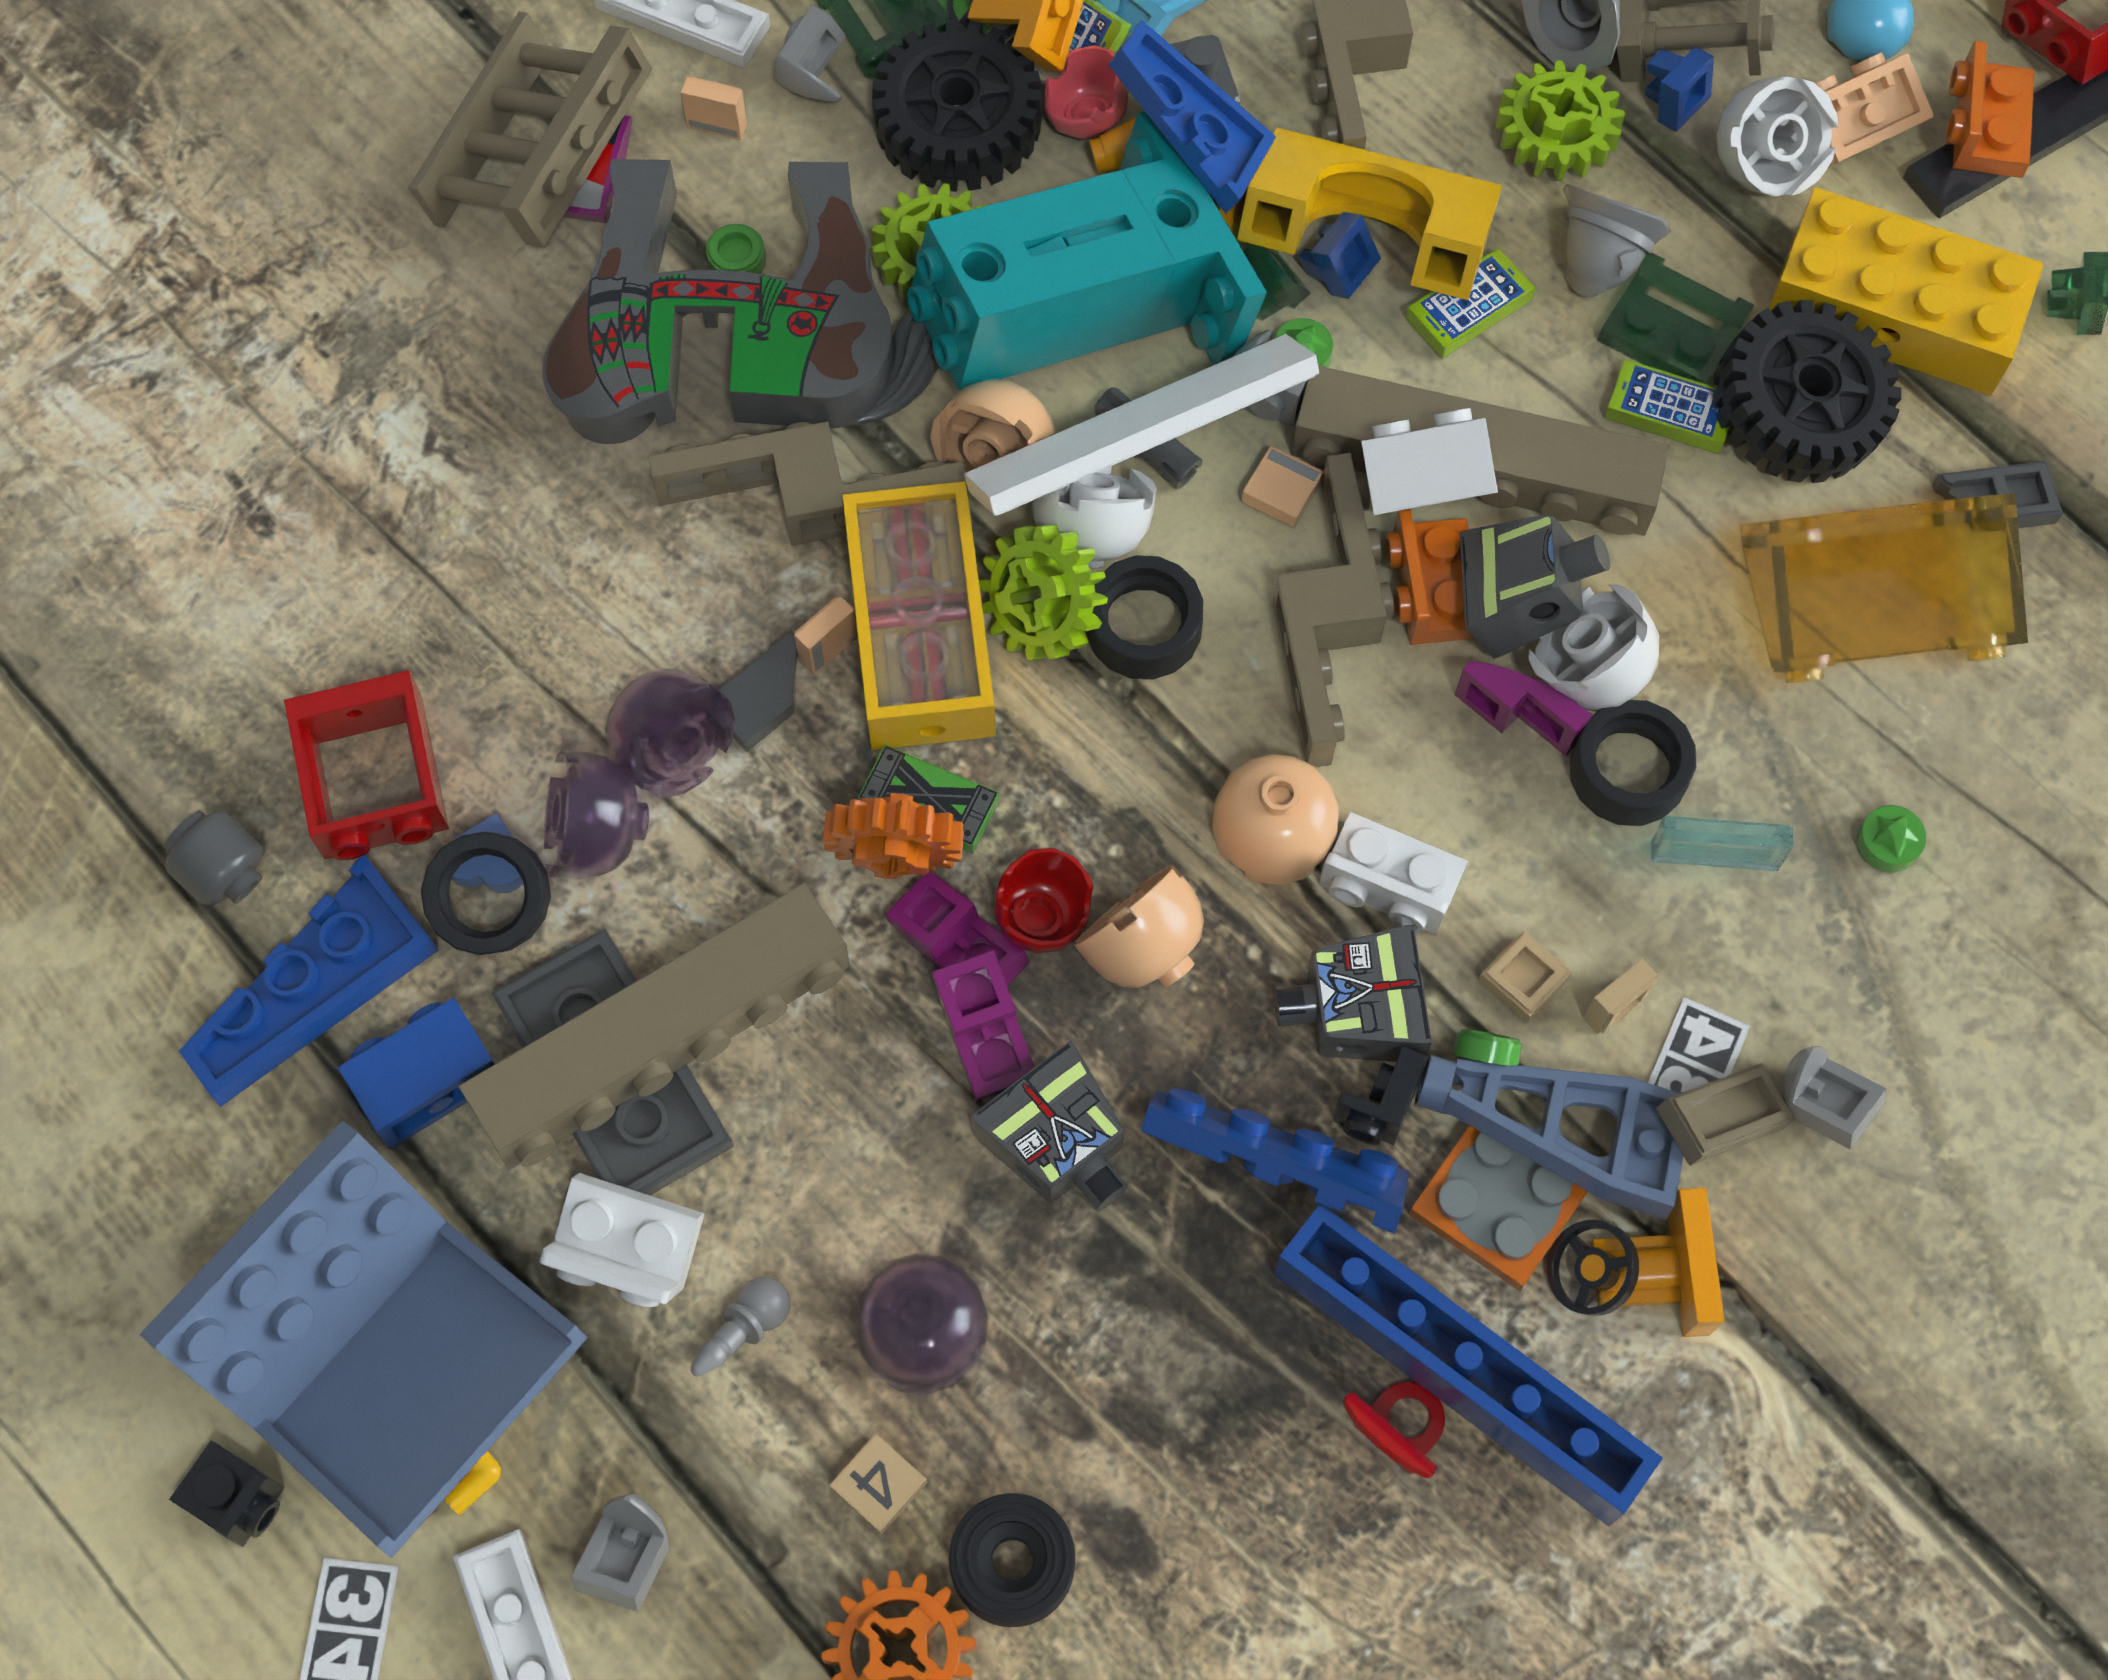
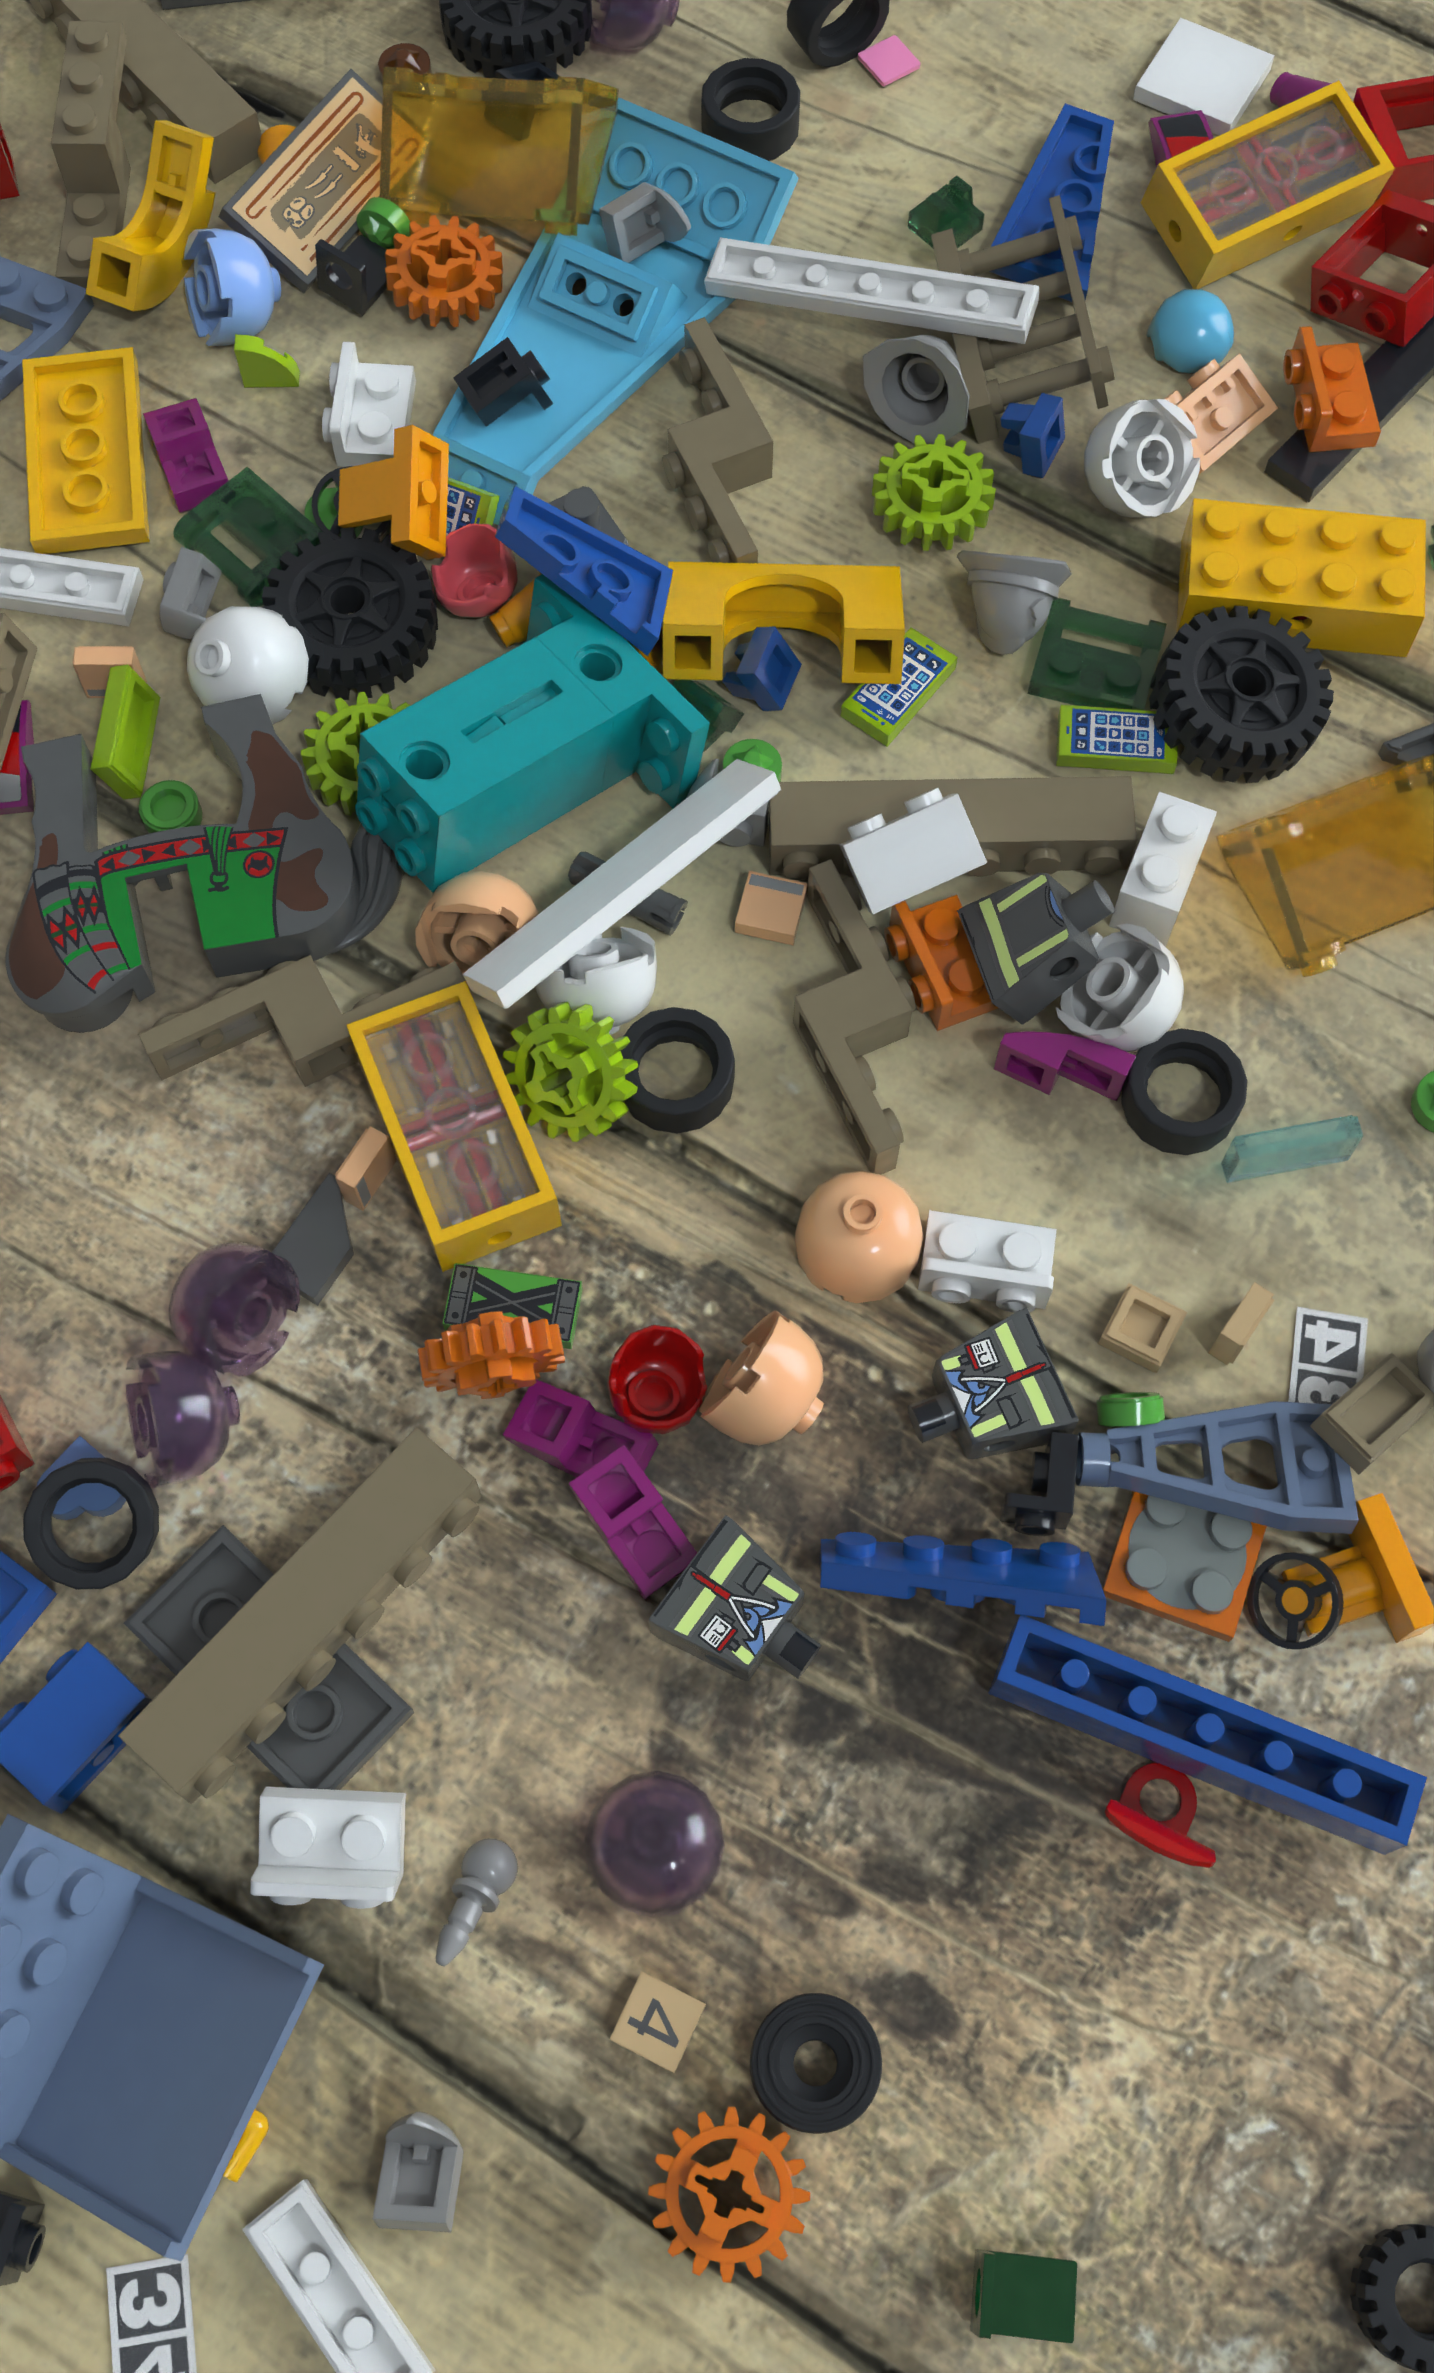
camera: 15 degrees left, 0 degrees up
(713, 169) = (125, 732): none -> lime tile
(849, 122) = (247, 655): none -> white cylinder
(1677, 541) = (1163, 866): none -> white brick

